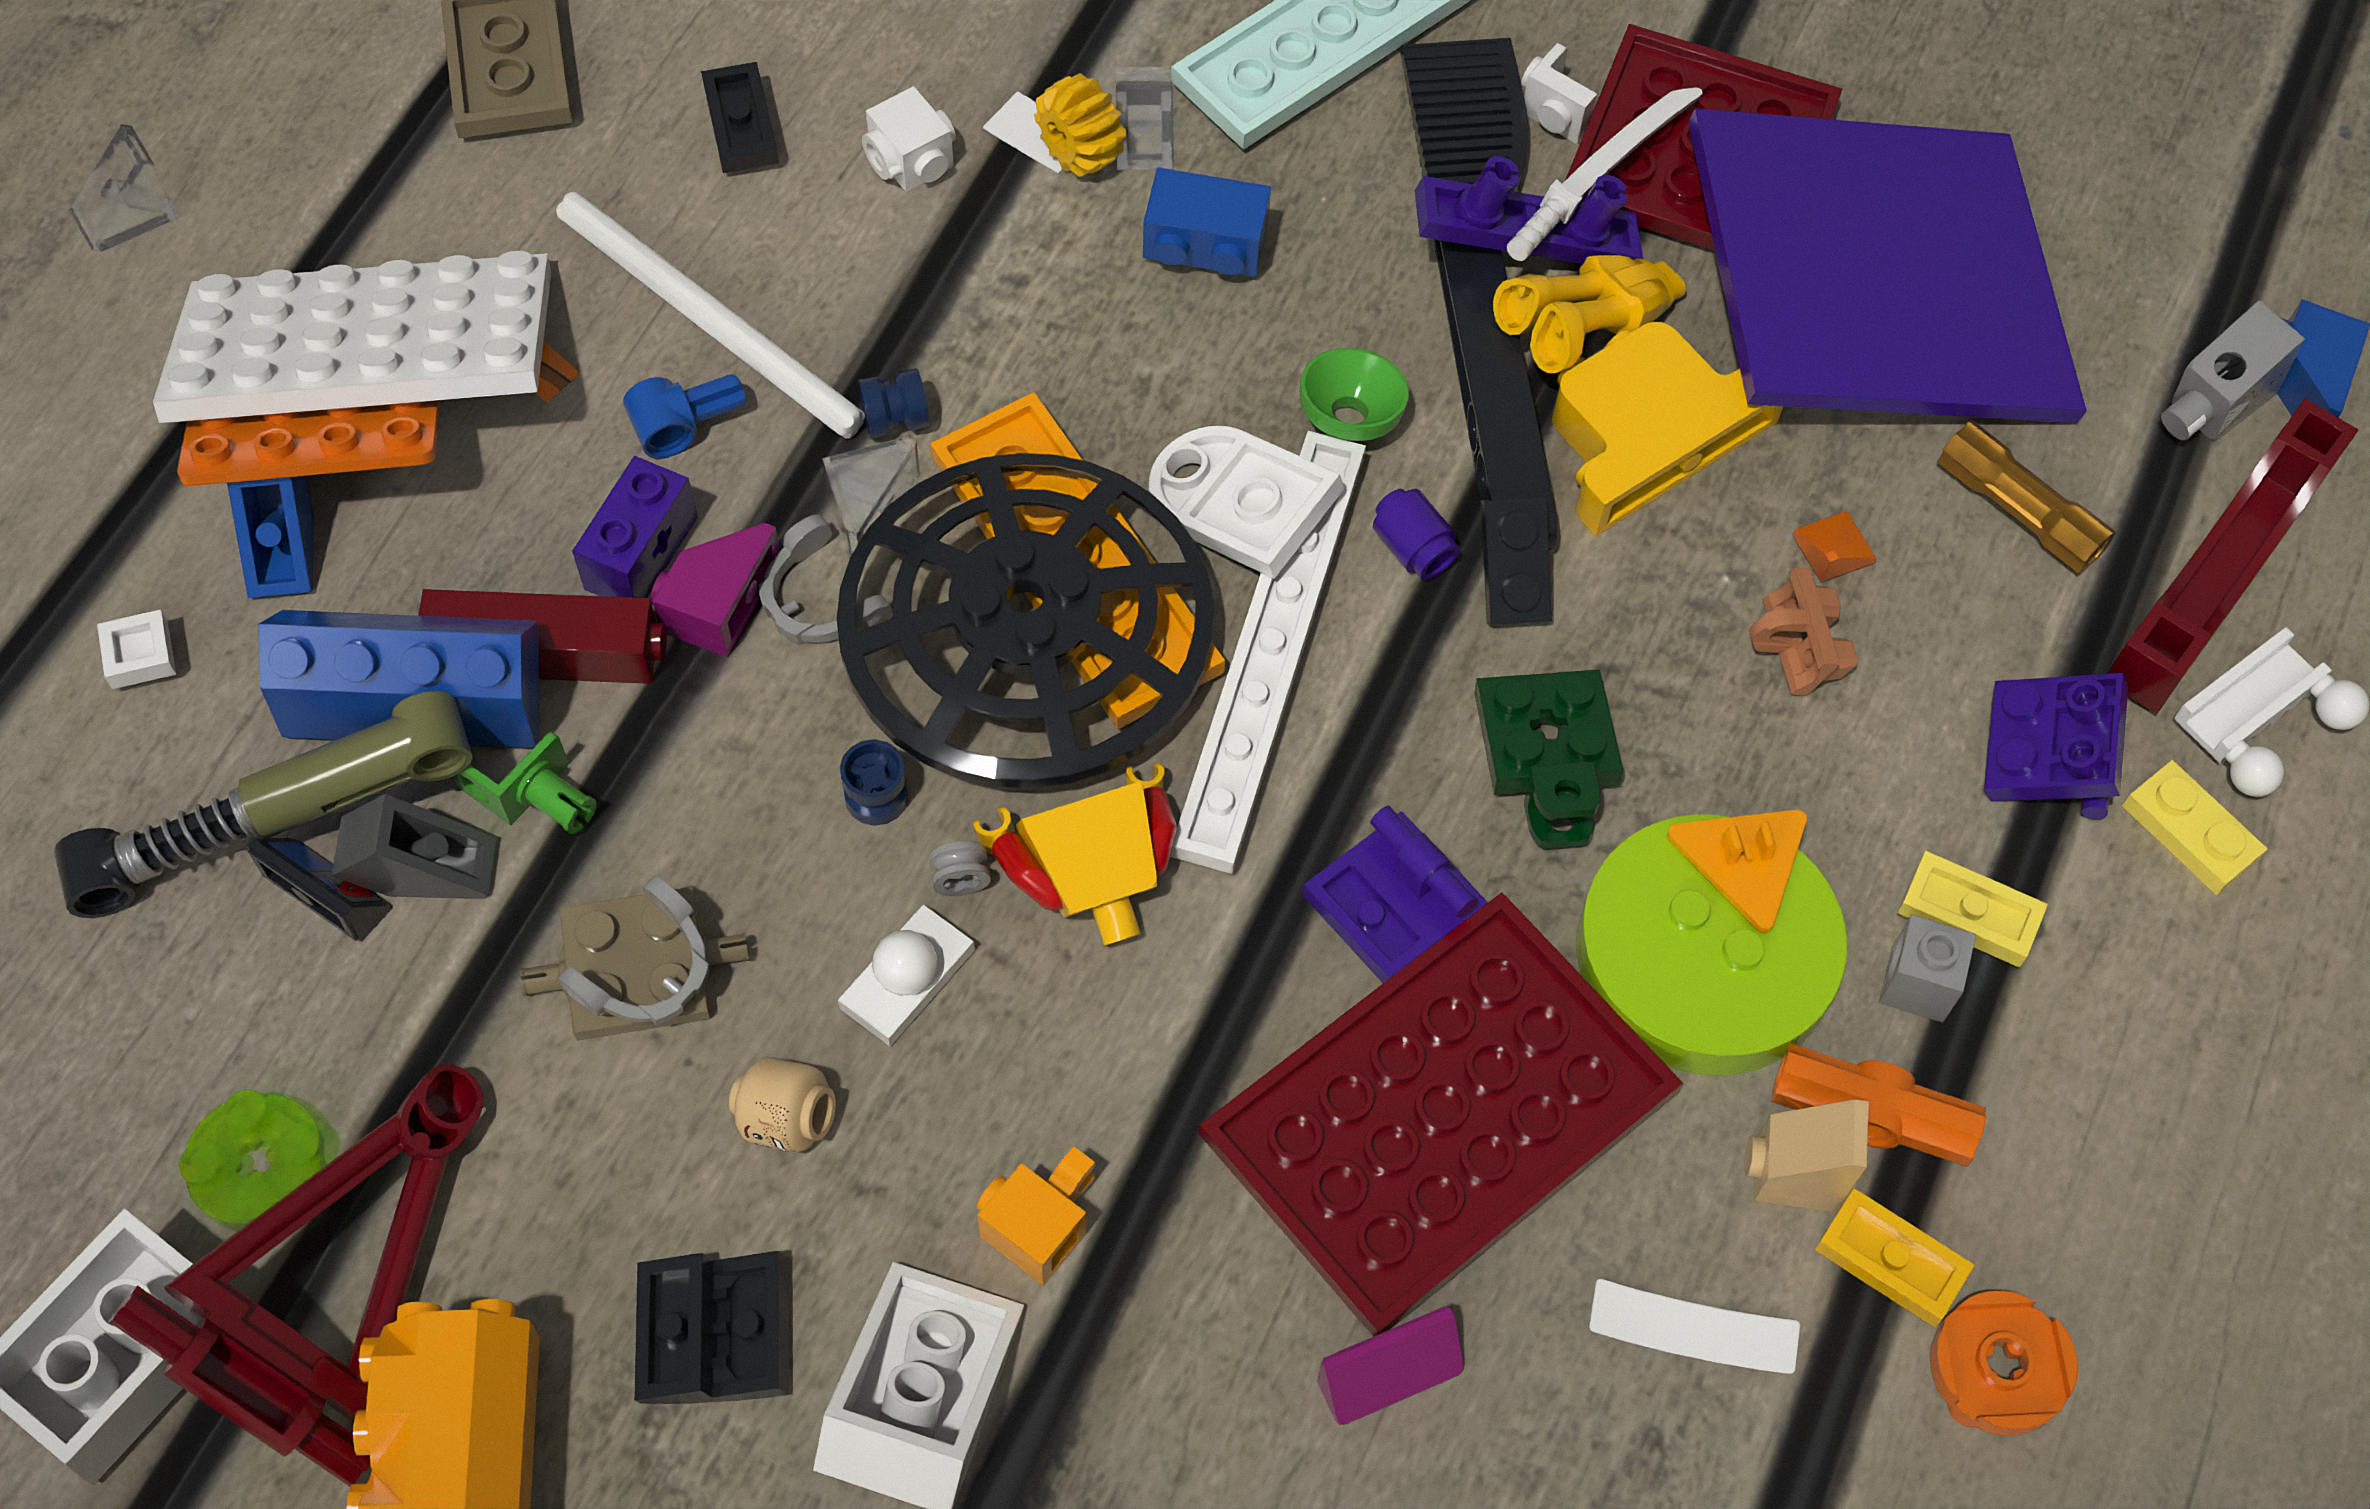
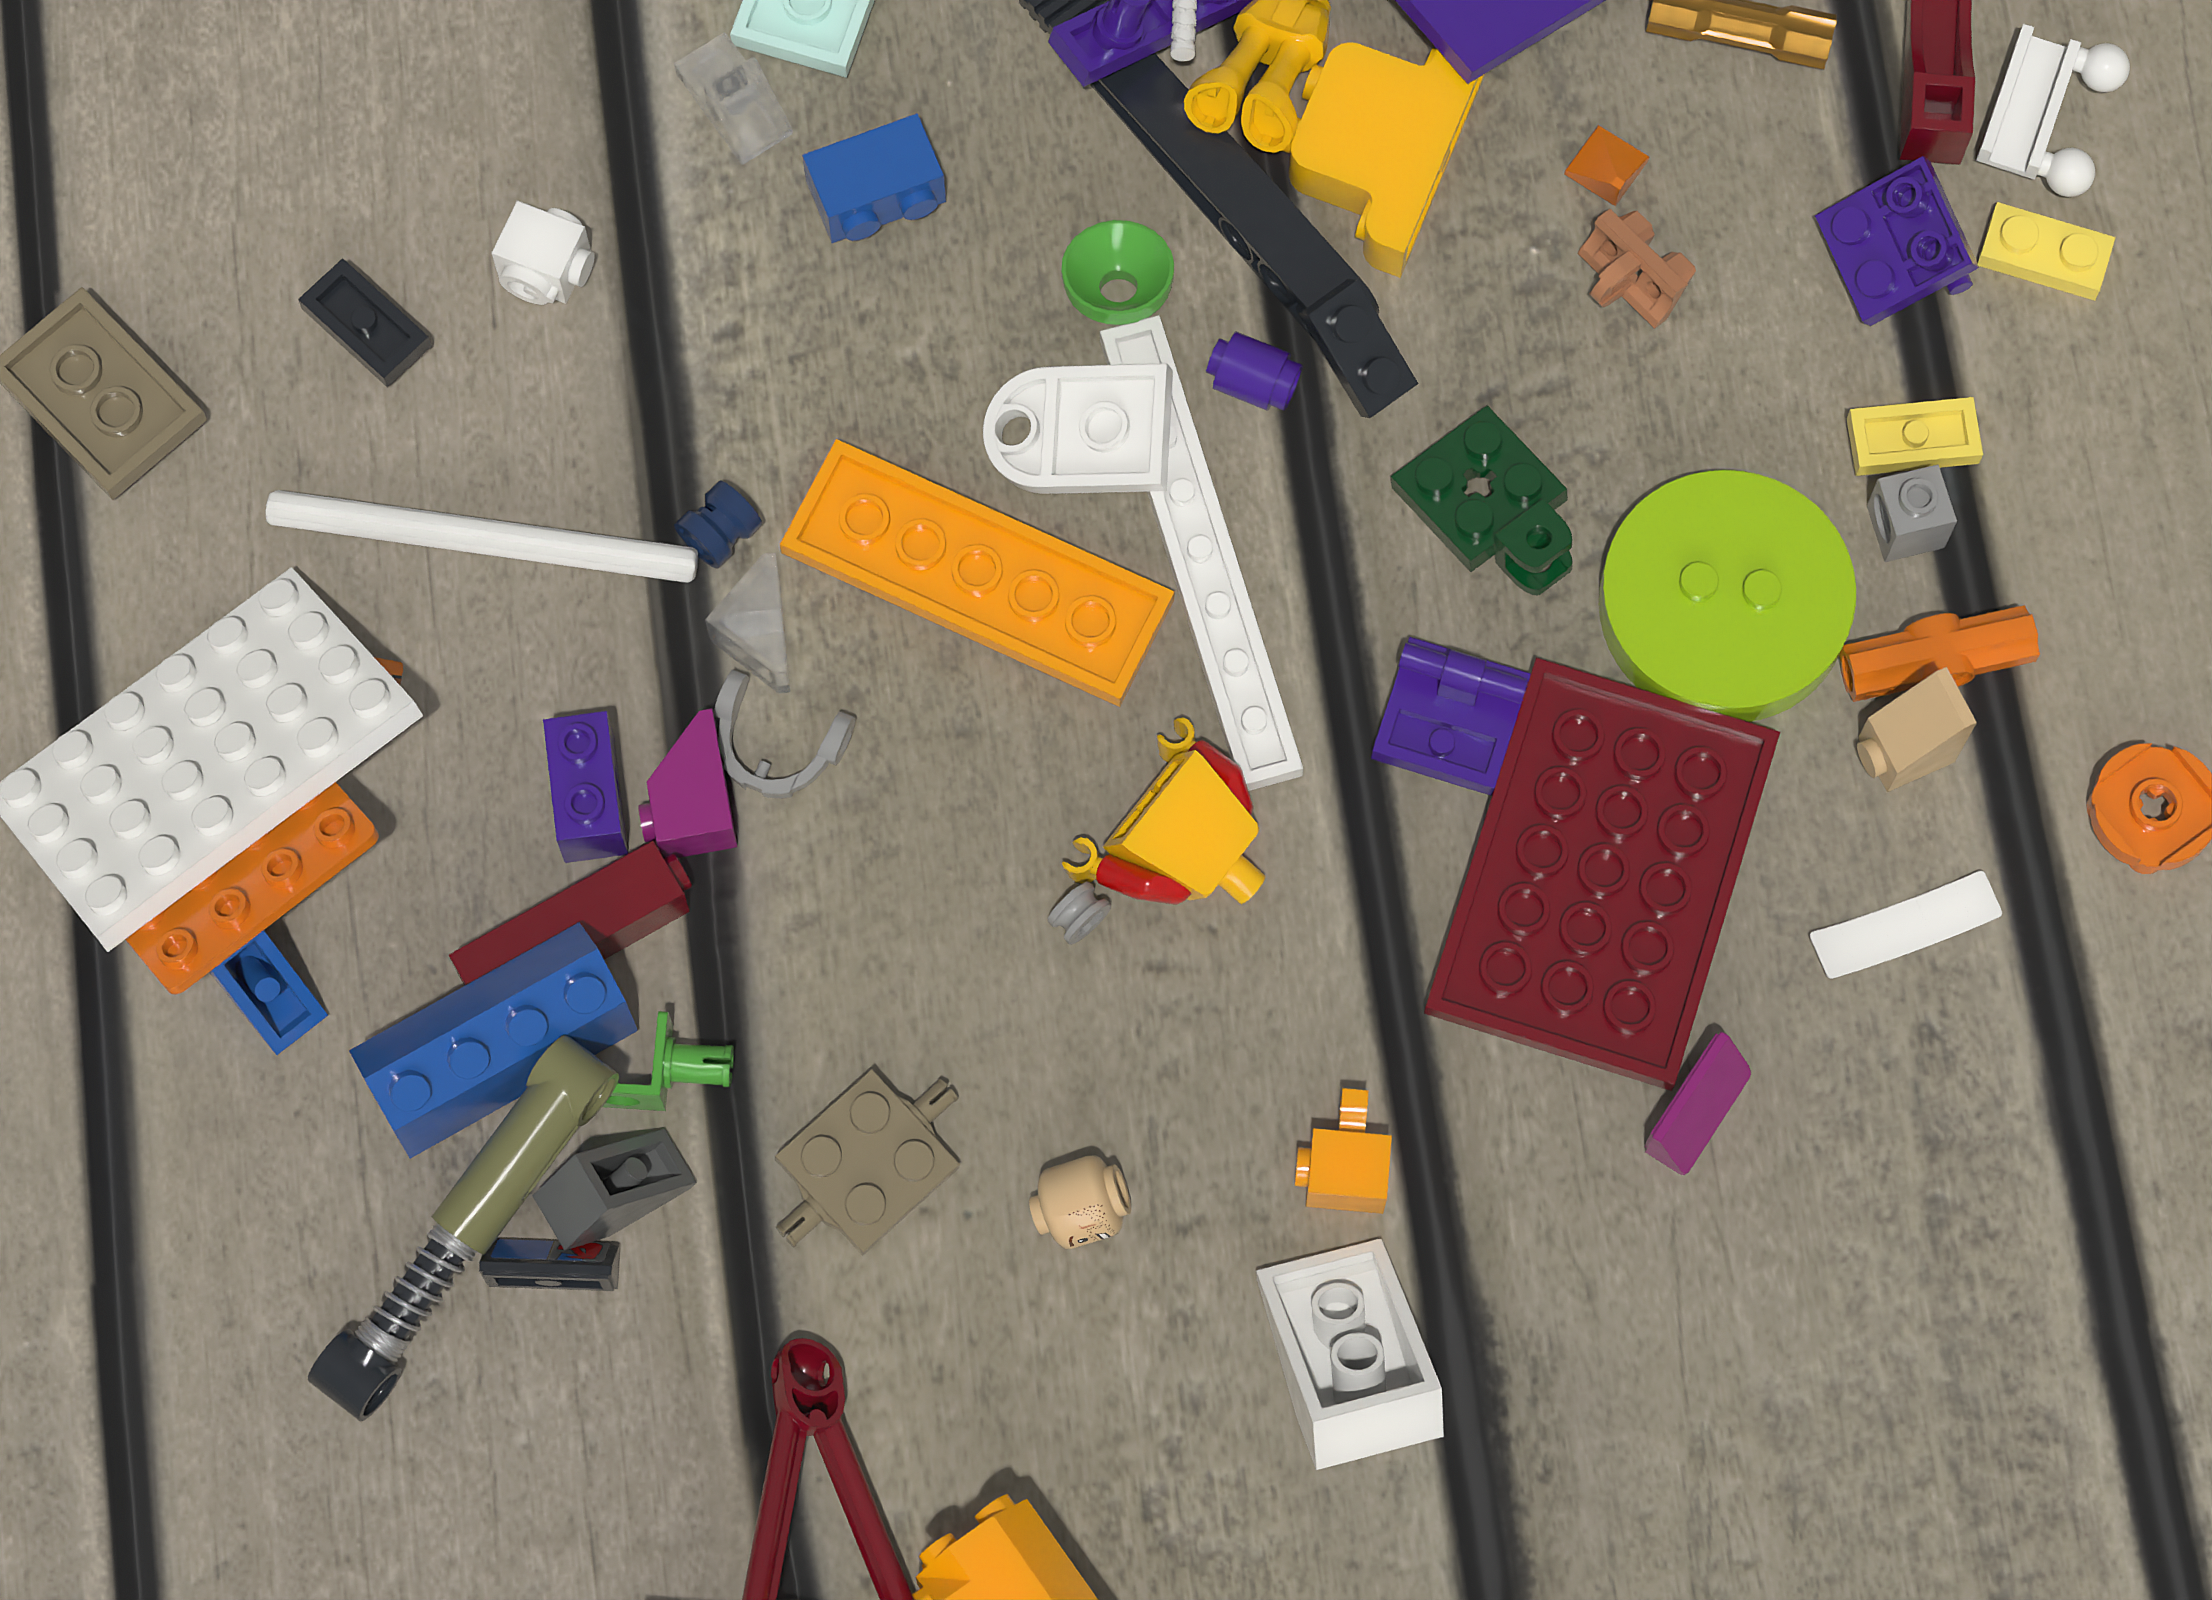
camera: 30 degrees left, 10 degrees up
(136, 649) = (223, 1162): white plate -> none
(230, 1132) = (709, 1548): clear neon green plate -> none
(597, 1000) = (888, 1098): light grey piece -> none
(668, 415) = (525, 656): blue axle -> none
(712, 1329) = (1151, 1413): black slope -> none
(867, 769) = (954, 869): dark blue wheel -> none
(906, 974) = (1097, 1030): white tile -> none
(1018, 128) = (642, 169): white sticker -> none
(1031, 640) = (988, 688): black dish -> none
(1080, 124) = (694, 148): yellow gear -> none
(1745, 858) = (1716, 508): light orange piece -> none
(1894, 1257) = (2025, 773): yellow plate -> none

